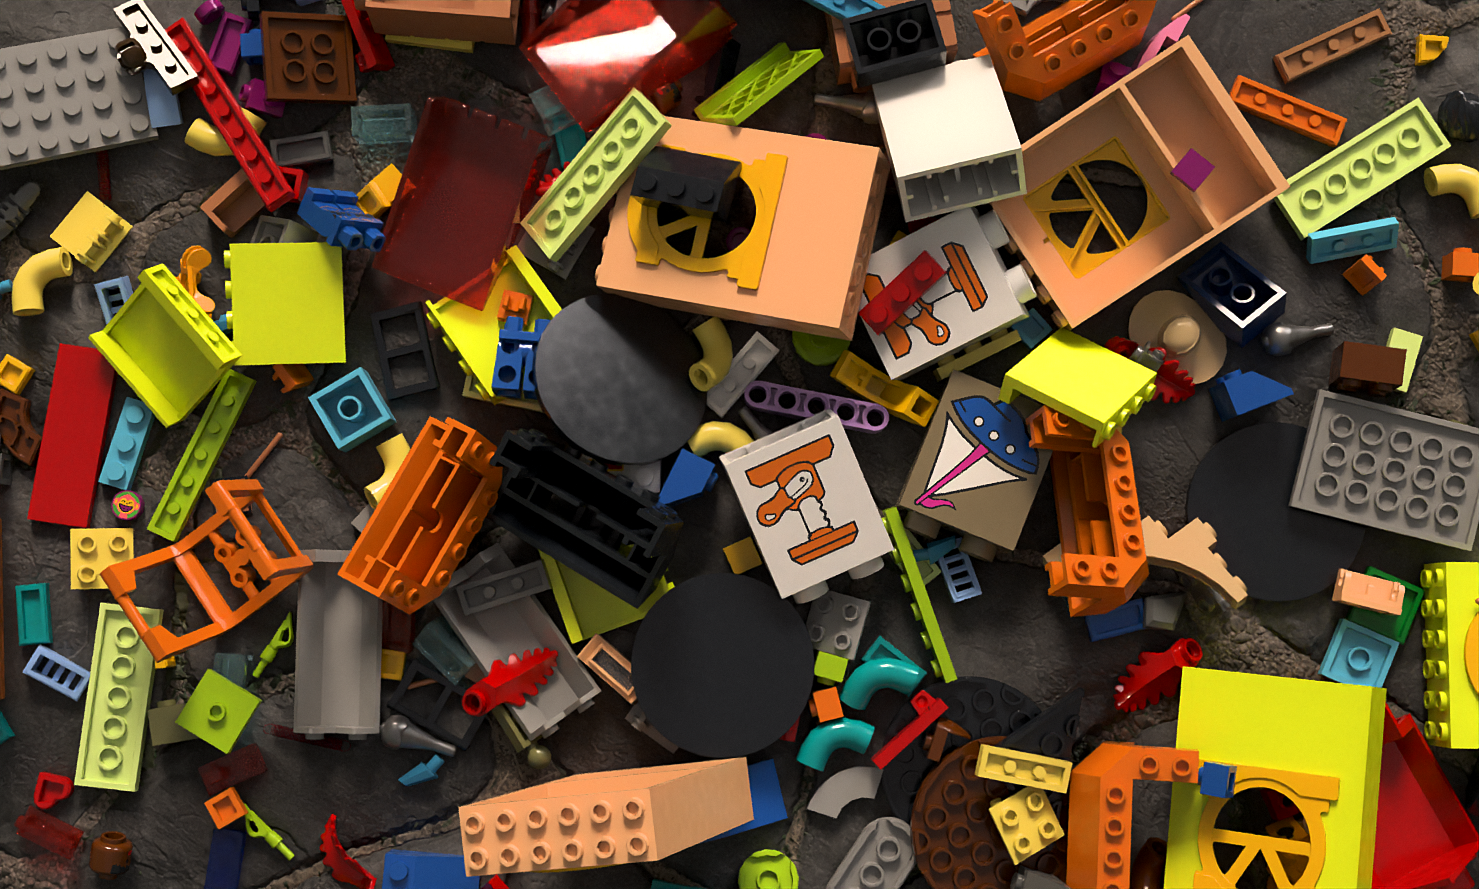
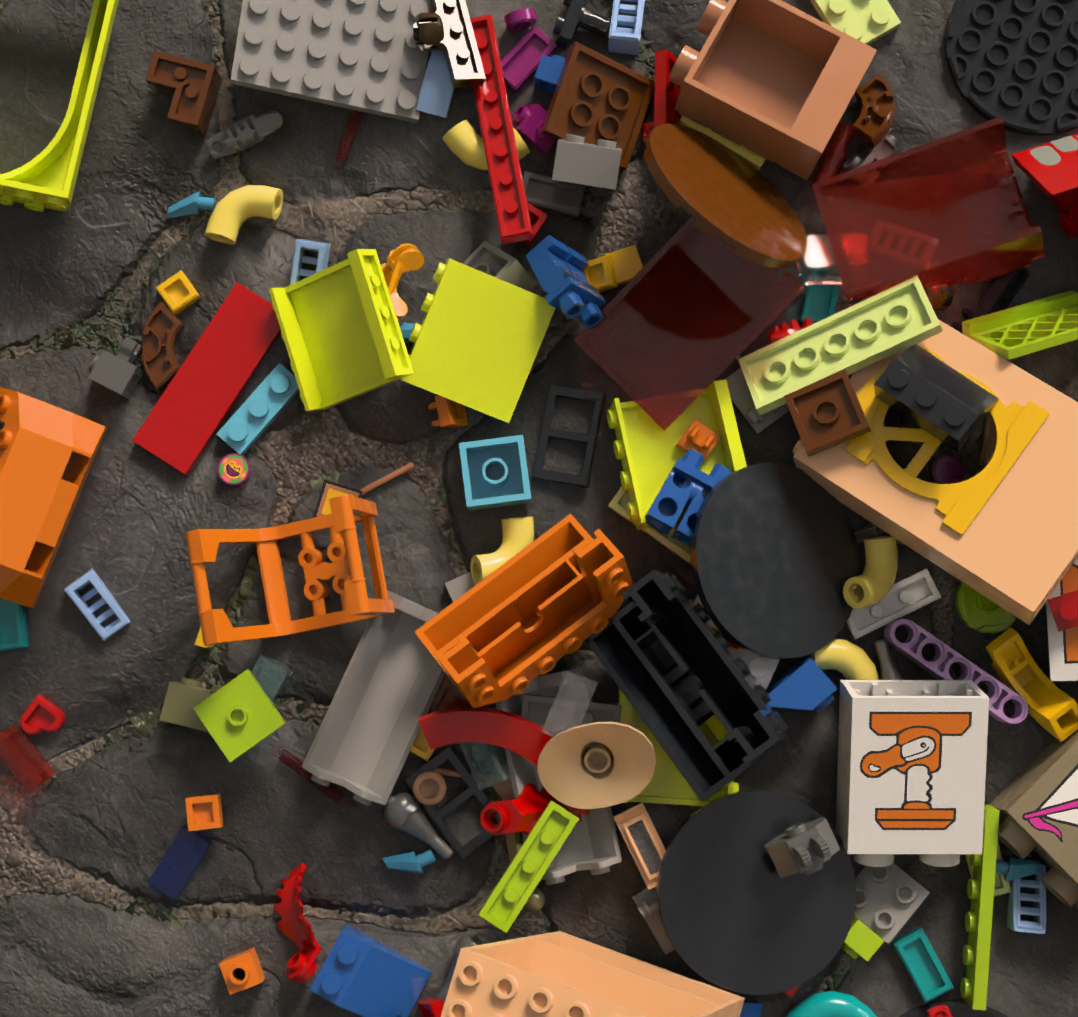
camera: 25 degrees right, 0 degrees up
(34, 614) = (98, 536): teal tile -> none
(91, 231) = (313, 185): light yellow hinge -> none
(94, 551) = (186, 507): light yellow hinge -> none
(110, 855) = (72, 808): reddish brown head -> none
(117, 702) = (143, 658): yellowish green plate -> none
(201, 455) = (327, 452): lime plate -> none
(232, 769) = (225, 776): clear red hinge -> none
(234, 204) = (466, 218): nougat panel -> none
(264, 830) = (234, 859): lime hand -> none
(271, 650) = (320, 669): lime hand -> none
(316, 111) = (586, 162): none -> light grey slope
(383, 123) = (642, 203): clear light blue panel -> none
(410, 701) = (429, 788): none -> medium nougat tile
(442, 89) = (725, 196): none -> reddish brown tile
(459, 623) = (486, 727): none -> red tile
(497, 579) = (570, 703): none -> clear plate
(520, 728) = (528, 866): none -> lime plate
(539, 617) = (596, 765): none -> tan hat
(607, 236) = (827, 413): none -> reddish brown plate
(741, 610) = (802, 848): none -> dark grey hinge
(742, 556) = (817, 787): yellow tile -> none
(825, 704) = (841, 975): orange plate -> none
(877, 675) = (904, 969): teal cylinder -> none

